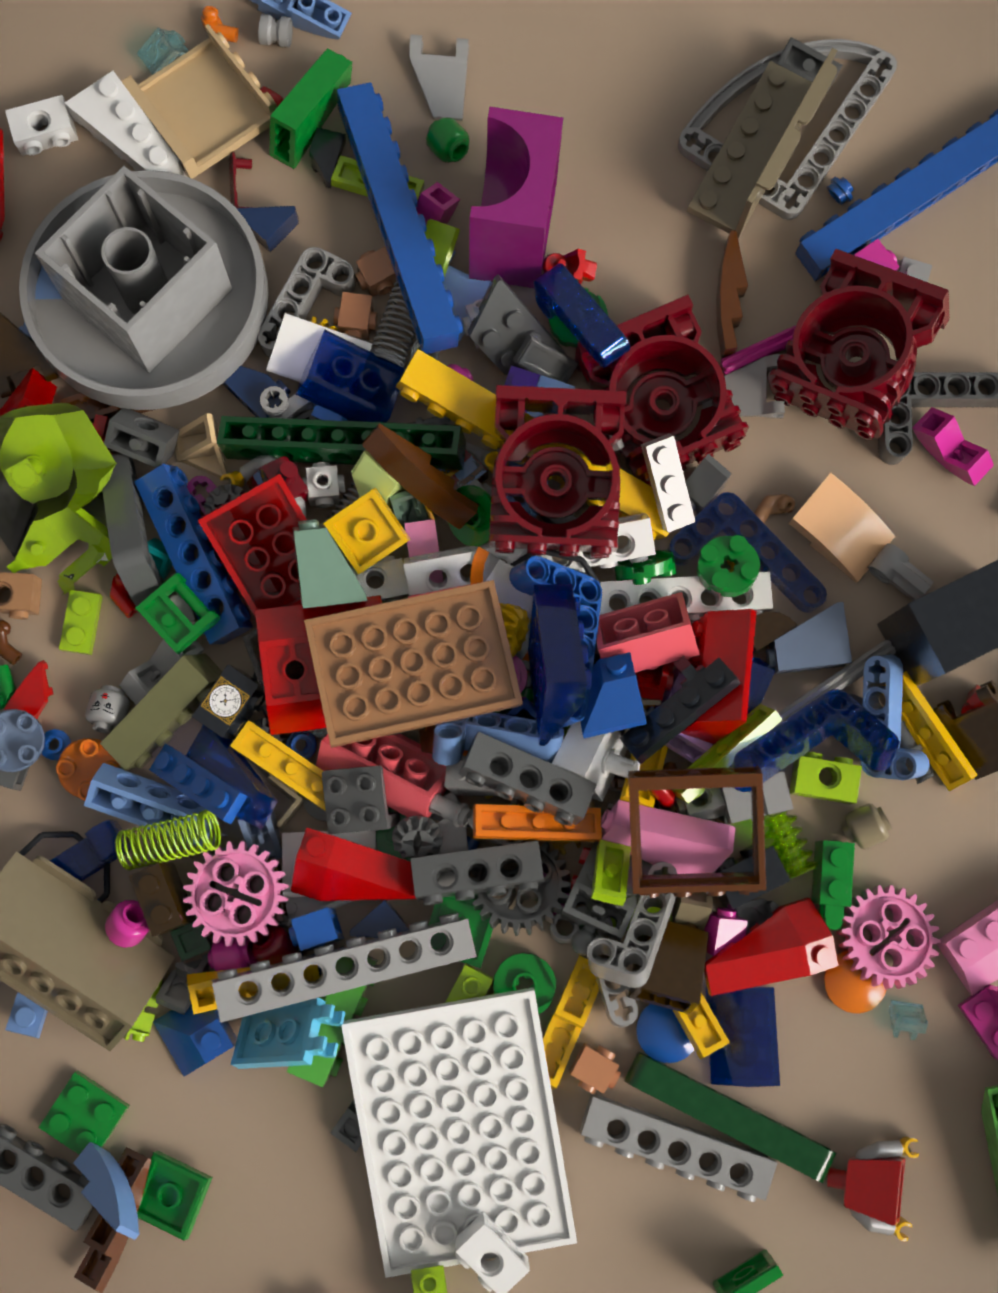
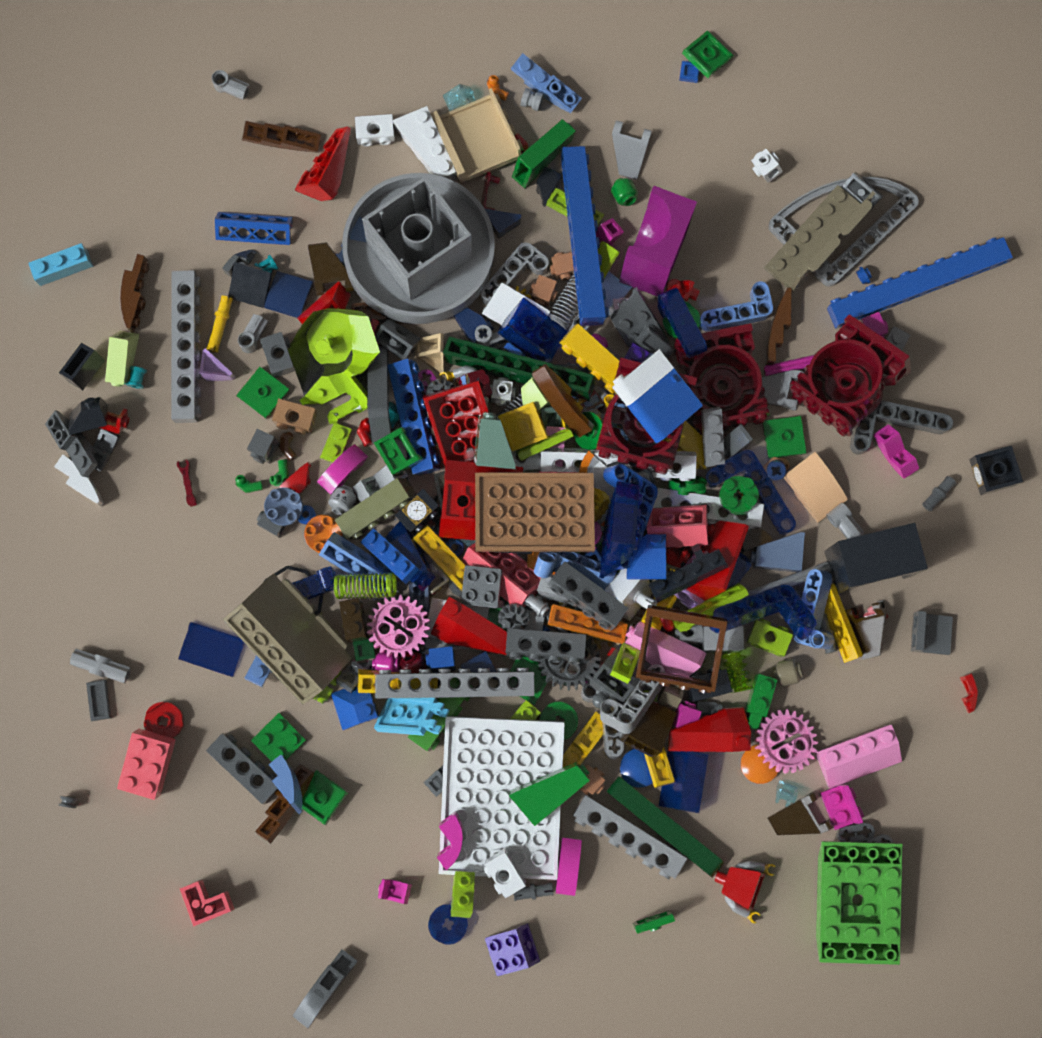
camera: 15 degrees right, 0 degrees up
(95, 659) = (341, 468): none -> dark pink brick
(126, 924) = (330, 630): dark pink head -> none
(393, 1207) = (453, 831): none -> dark pink brick
(406, 551) = (539, 446): none -> lime tile
(532, 1110) = (548, 792): none -> green slope
(547, 1269) = (534, 891): none -> dark grey pin
(568, 434) = (657, 396): none -> blue door
(591, 1218) = (568, 866): none -> dark pink brick
(656, 55) = (766, 165): none -> white brick
(656, 285) = (734, 311): none -> medium blue beam
(772, 511) = (778, 467): none -> dark blue wheel
(776, 462) = (784, 437): none -> green plate
(936, 1055) = (798, 819): none -> dark brown flag

